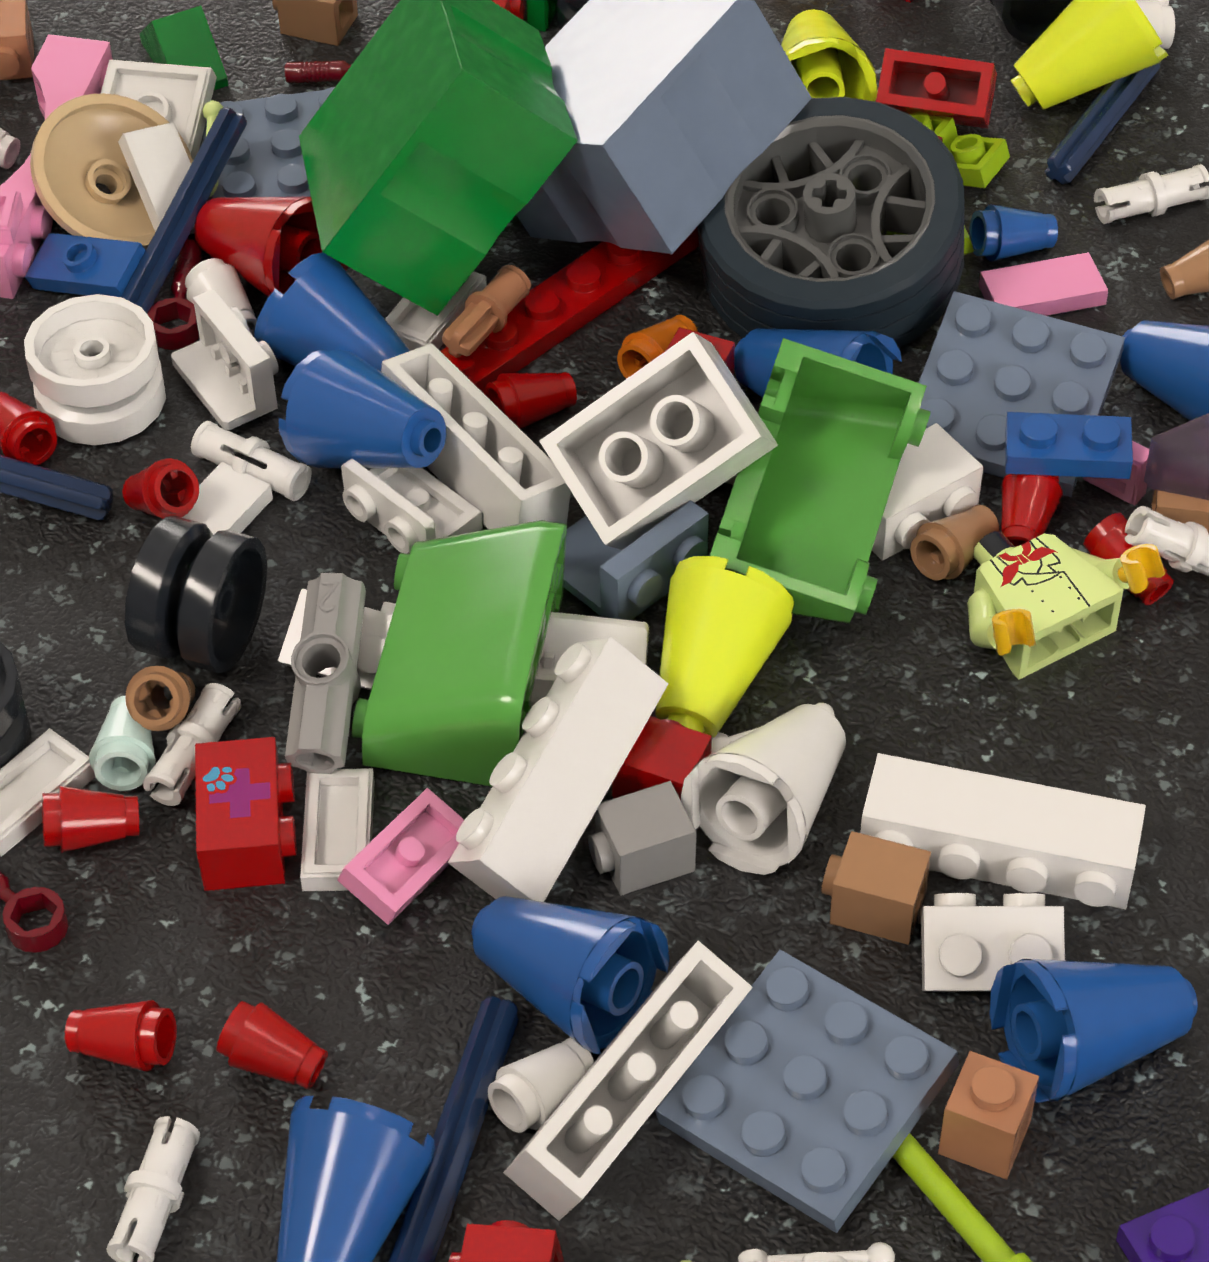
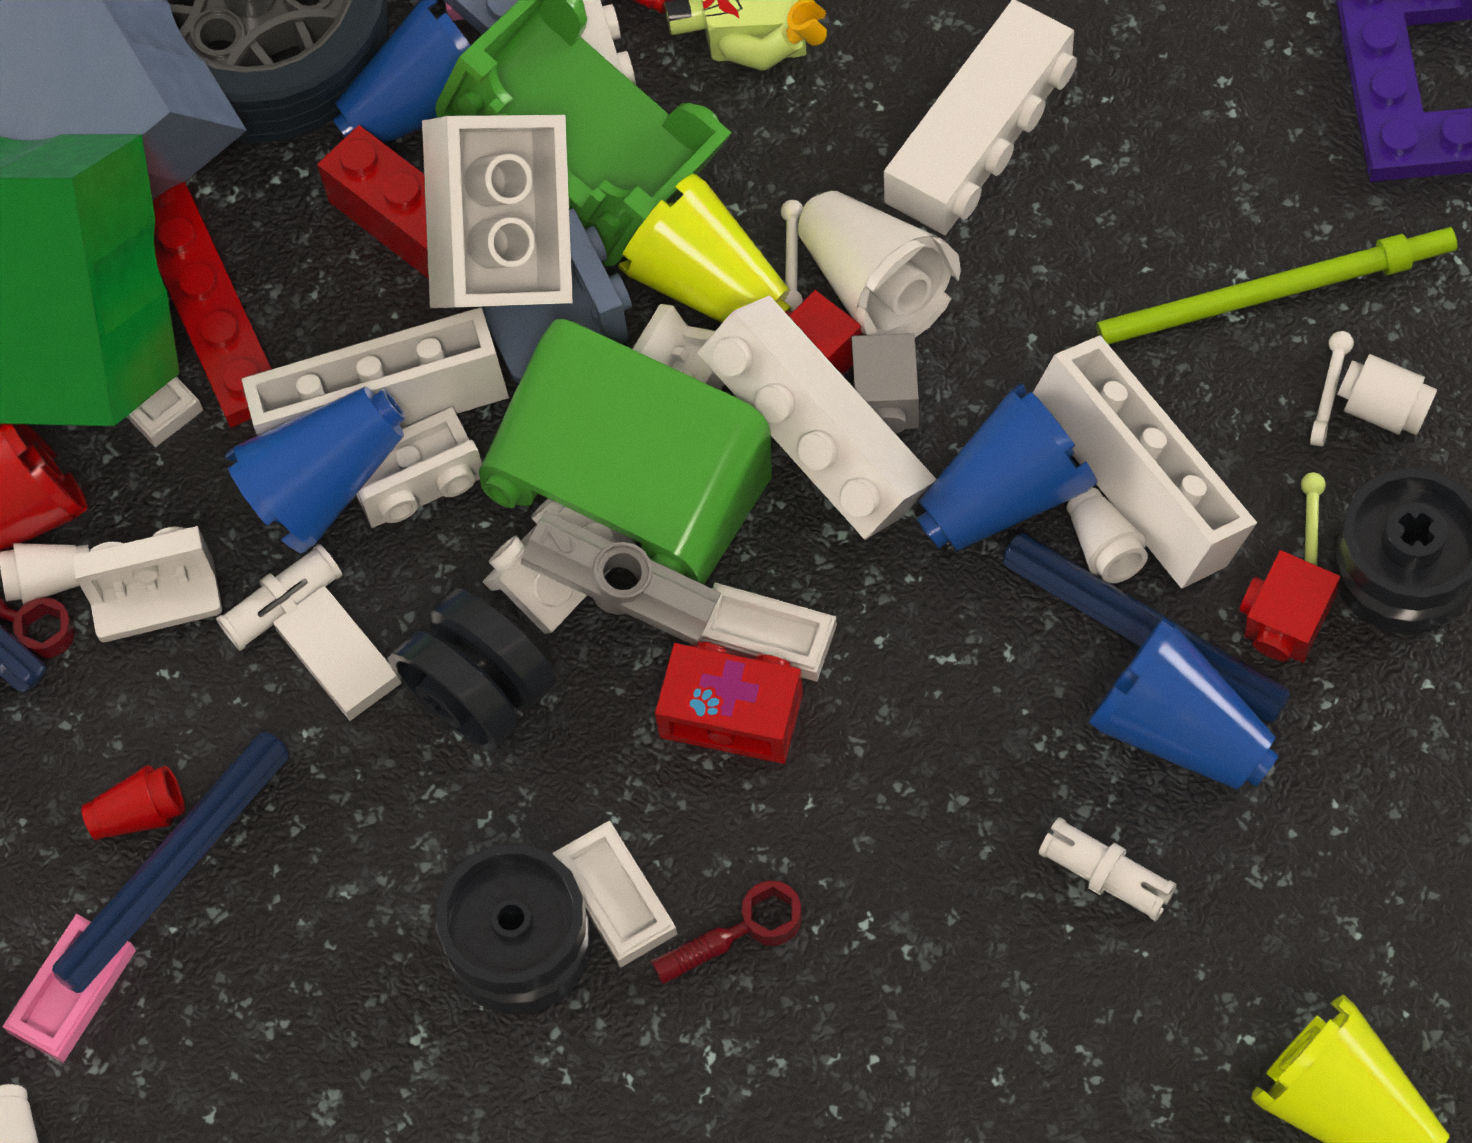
camera: 65 degrees left, 15 degrees up
(87, 818) = (679, 841): red cone -> none
(95, 368) = (104, 703): white wheel -> none
(122, 750) = (602, 787): light aqua cone -> none
(124, 1034) = (937, 858): red cone -> none
(148, 702) = (576, 733): medium nougat cone -> none
(162, 489) = (302, 679): red cone -> none
(203, 725) = (626, 728): white pin -> none
(270, 1046) = (992, 740): red cone -> none
(325, 313) = (160, 467): blue cone -> none
(404, 857) = (831, 576): bright pink plate -> none
(486, 311) = (206, 327): nougat axle -> none
(531, 396) = (312, 324): red cone -> none
(649, 343) = (304, 204): orange cone -> none
(808, 1089) = (1190, 328): sand blue plate -> none
(877, 886) = (1003, 223): medium nougat brick -> none
(948, 544) = (651, 45): medium nougat cone -> none
(971, 943) = (1085, 162): white bracket -> none
(988, 1114) = (1254, 218): nougat brick -> none
(1086, 1018) = (1198, 125): blue cone -> none

